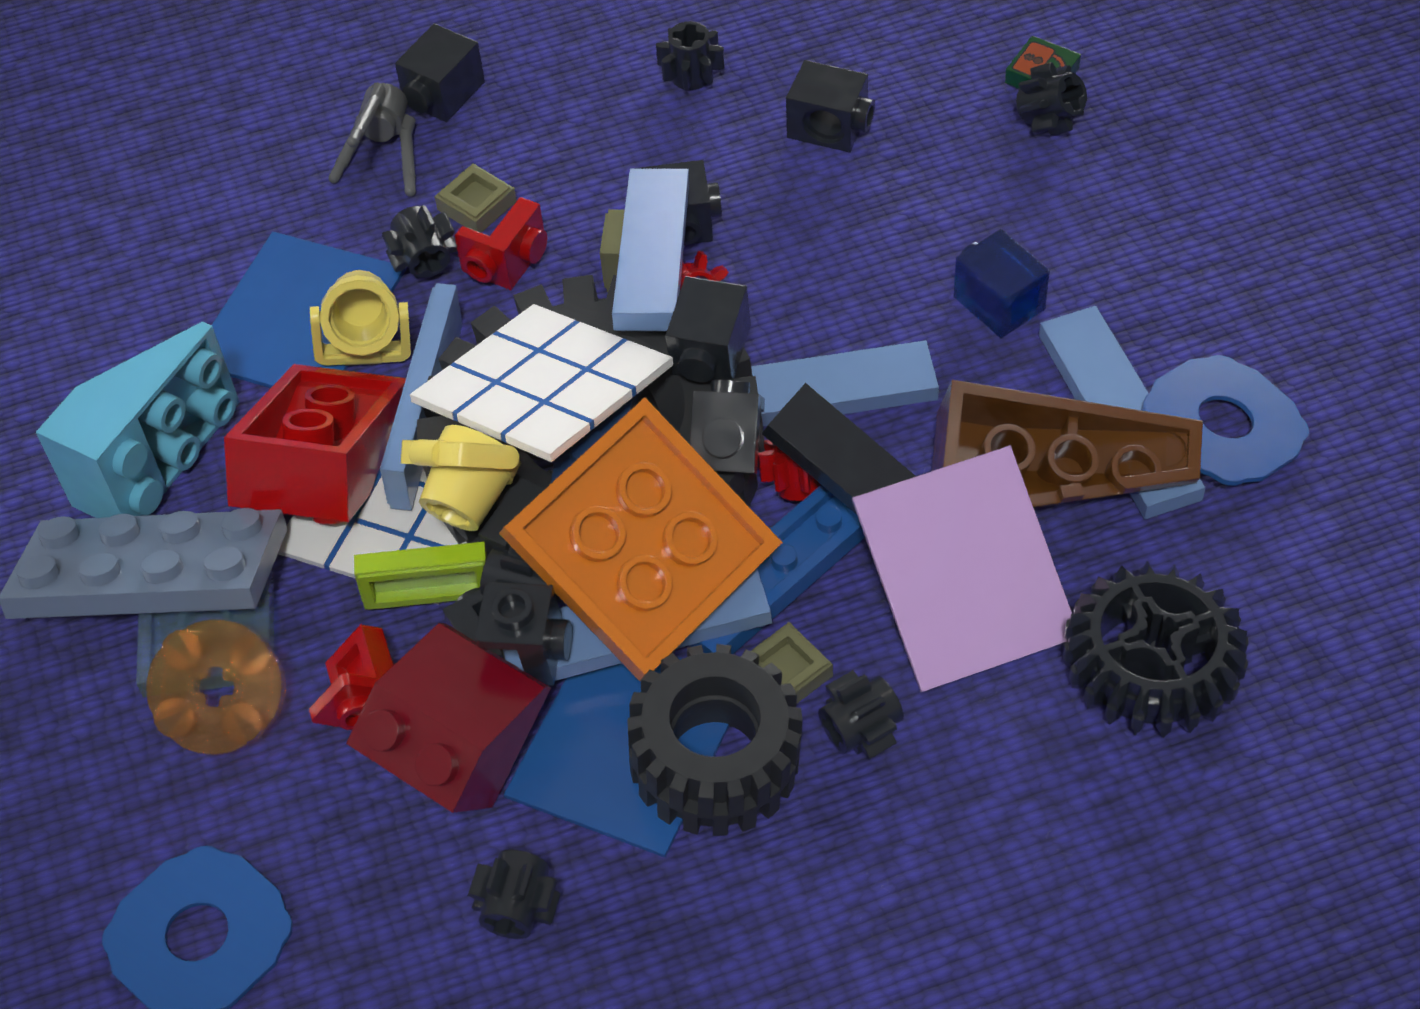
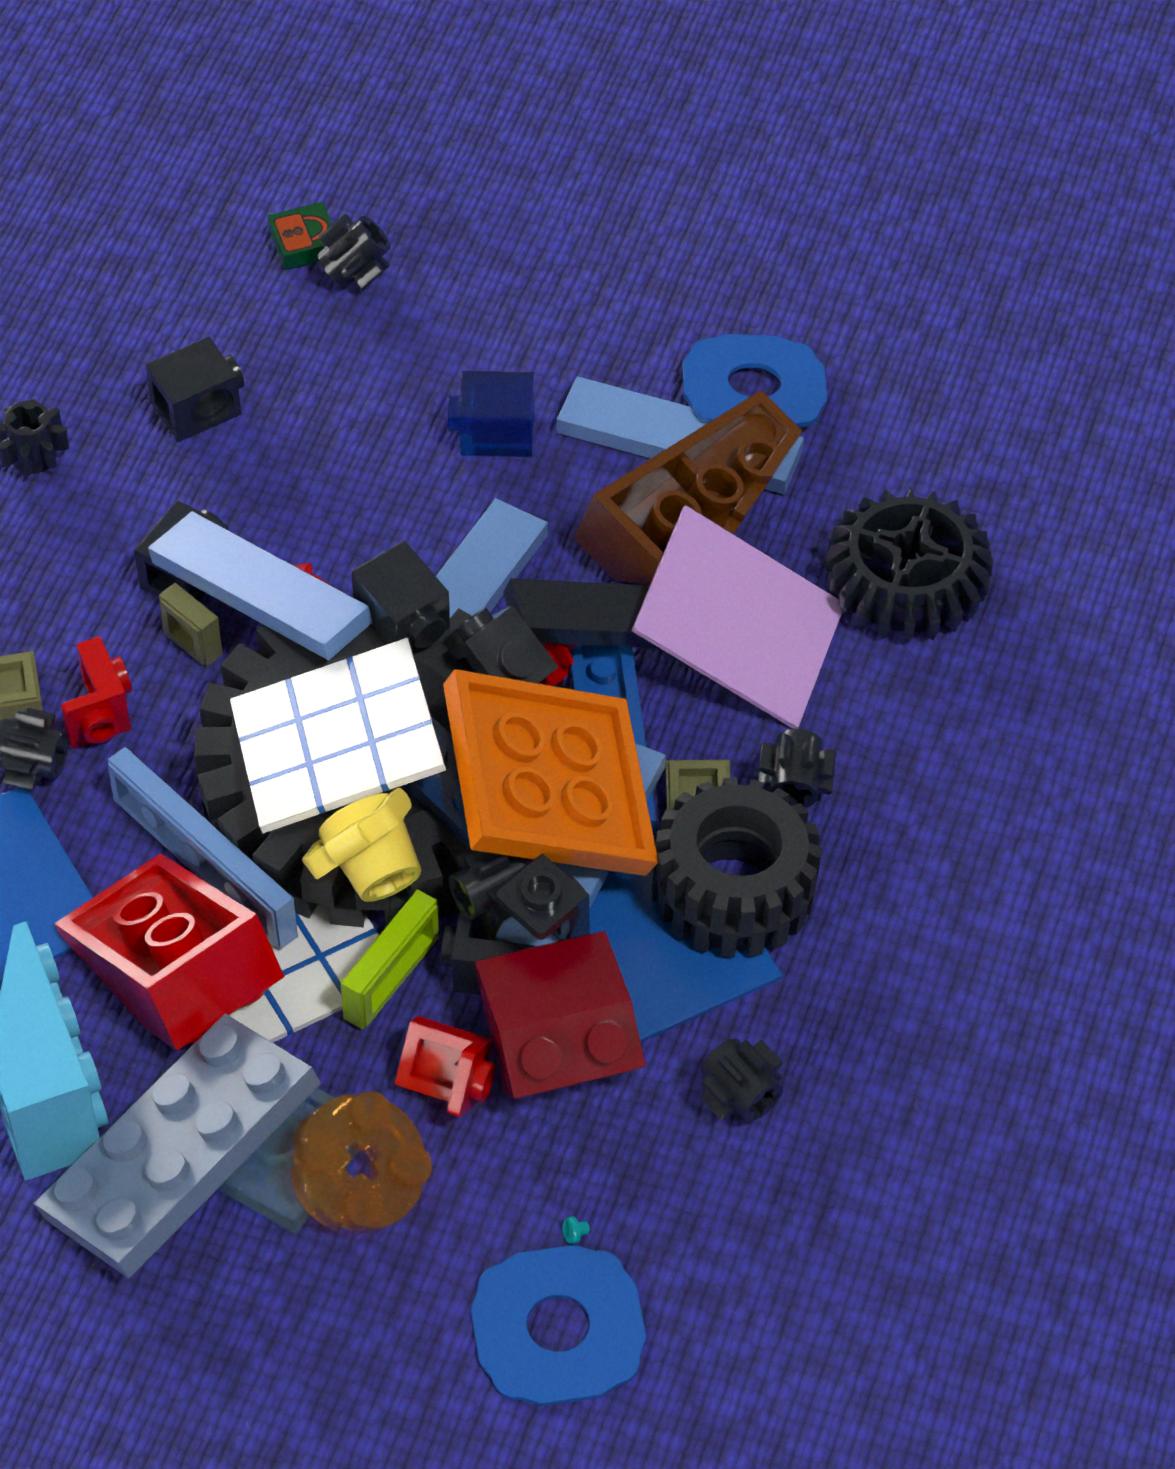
camera: 55 degrees left, 0 degrees up
(291, 880) = (574, 1230): none -> teal piece
(359, 321) = (78, 834): light yellow piece -> none

